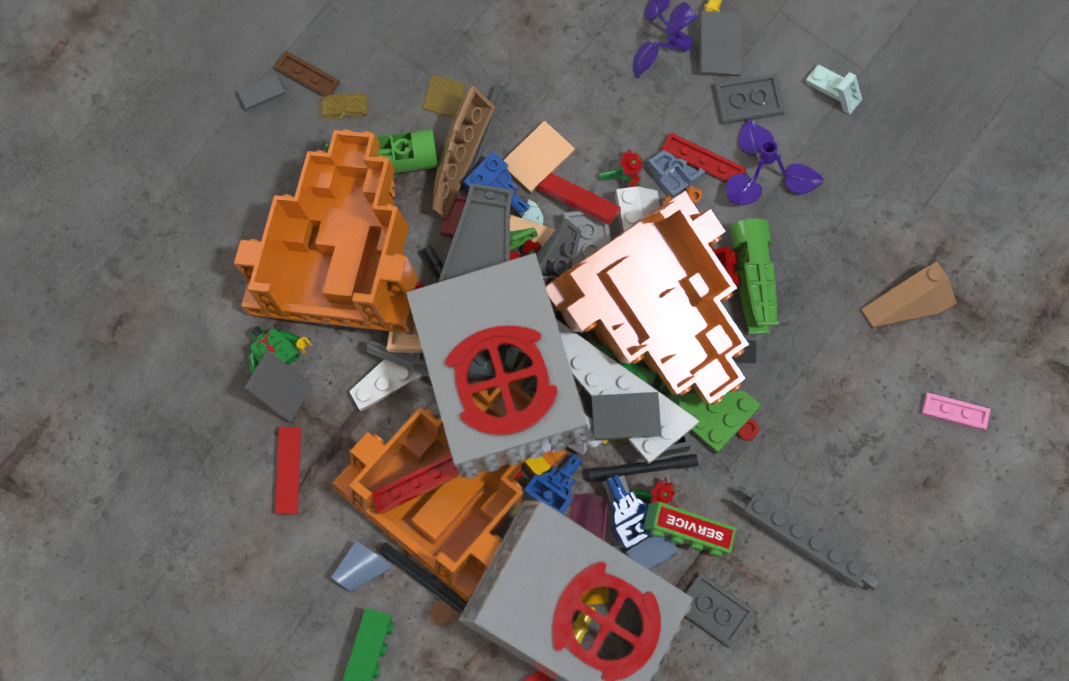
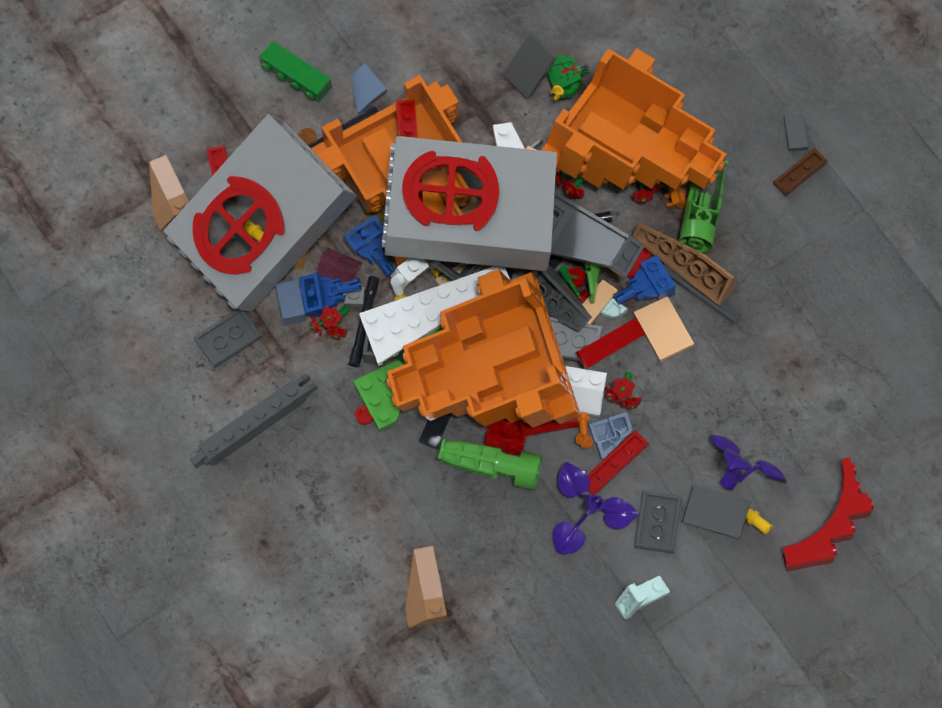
camera: 120 degrees right, 5 degrees down
(288, 471) = (464, 62): red tile -> none
(344, 104) = (761, 190): clear yellow slope -> none
(444, 95) = (747, 273): clear yellow piece -> none
(626, 416) = (401, 304): dark grey tile -> none
(689, 529) = (295, 330): brick -> none
(956, 411) = (314, 590): bright pink tile -> none

